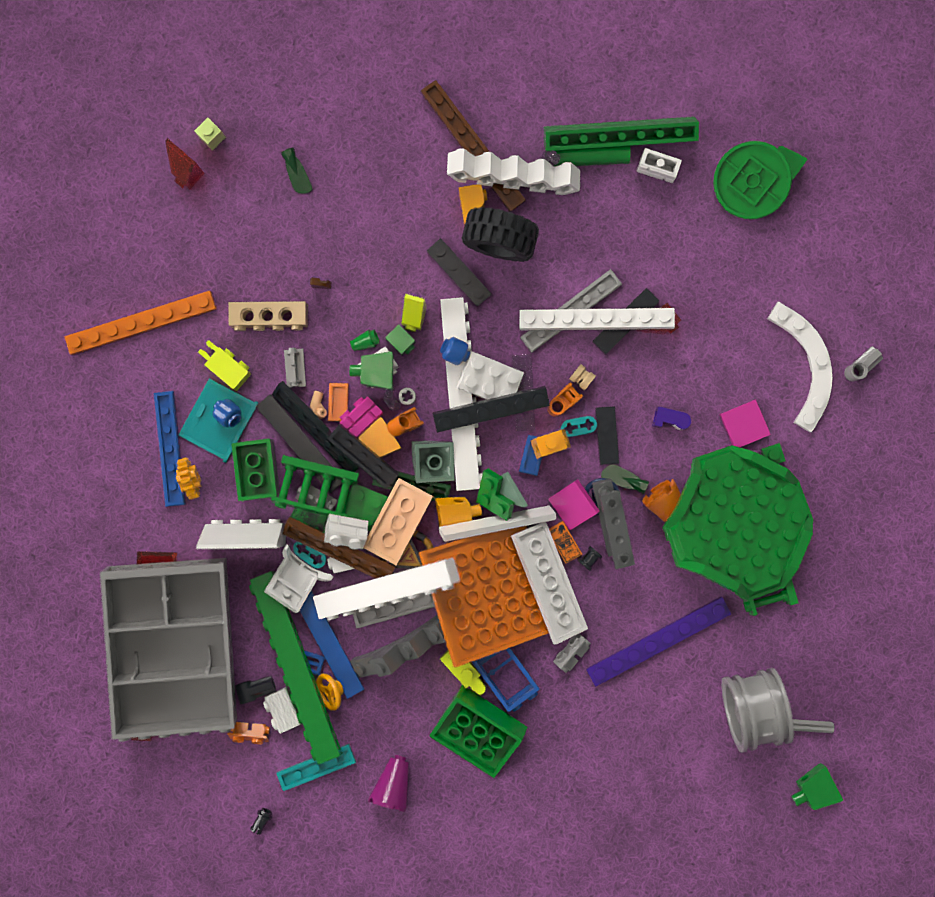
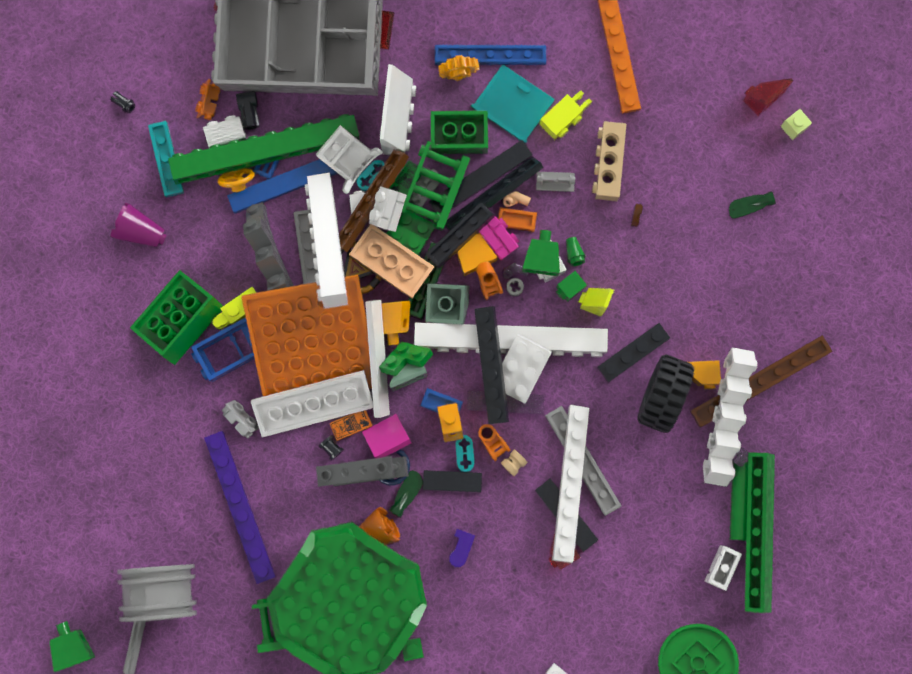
camera: 95 degrees right, 5 degrees down
(227, 413) = (518, 111): blue head -> none
(454, 350) = (553, 335): blue head -> none
(745, 424) = (447, 624): dark pink tile -> none

